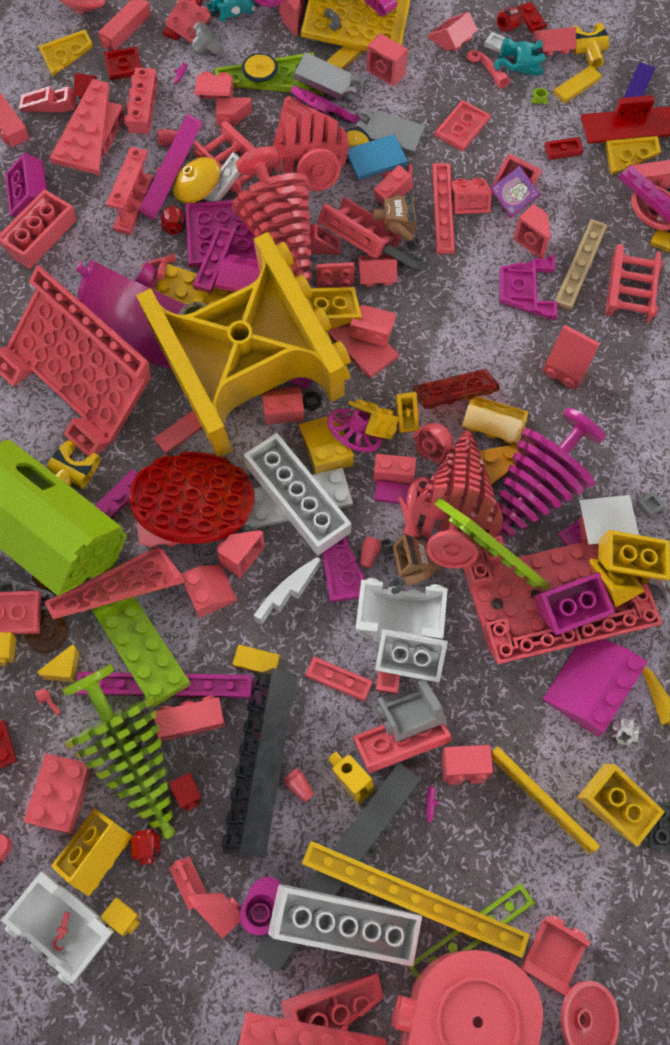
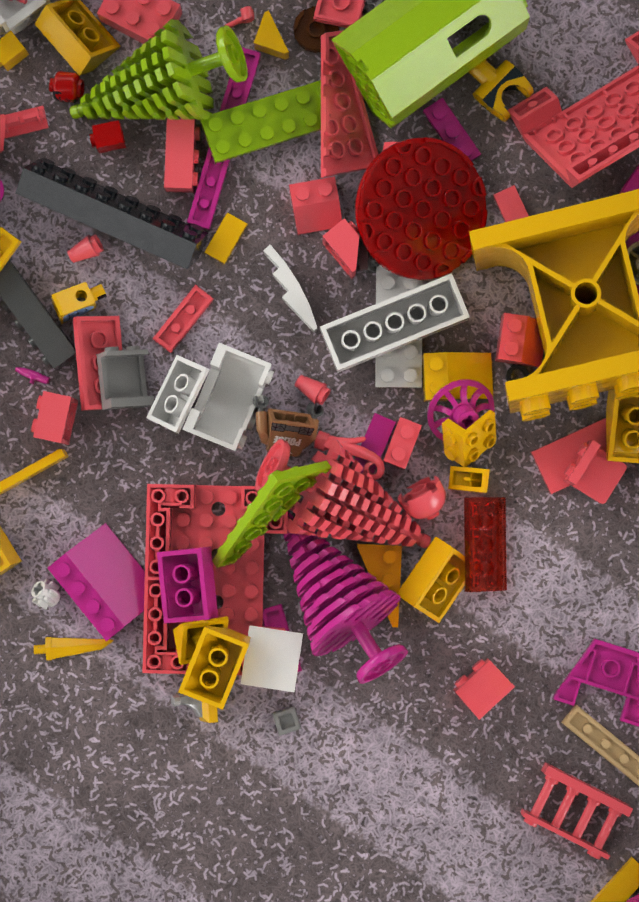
camera: 110 degrees right, 20 degrees up
(342, 572) = (296, 353): dark pink wing -> none
(387, 683) = (161, 366): coral plate -> none

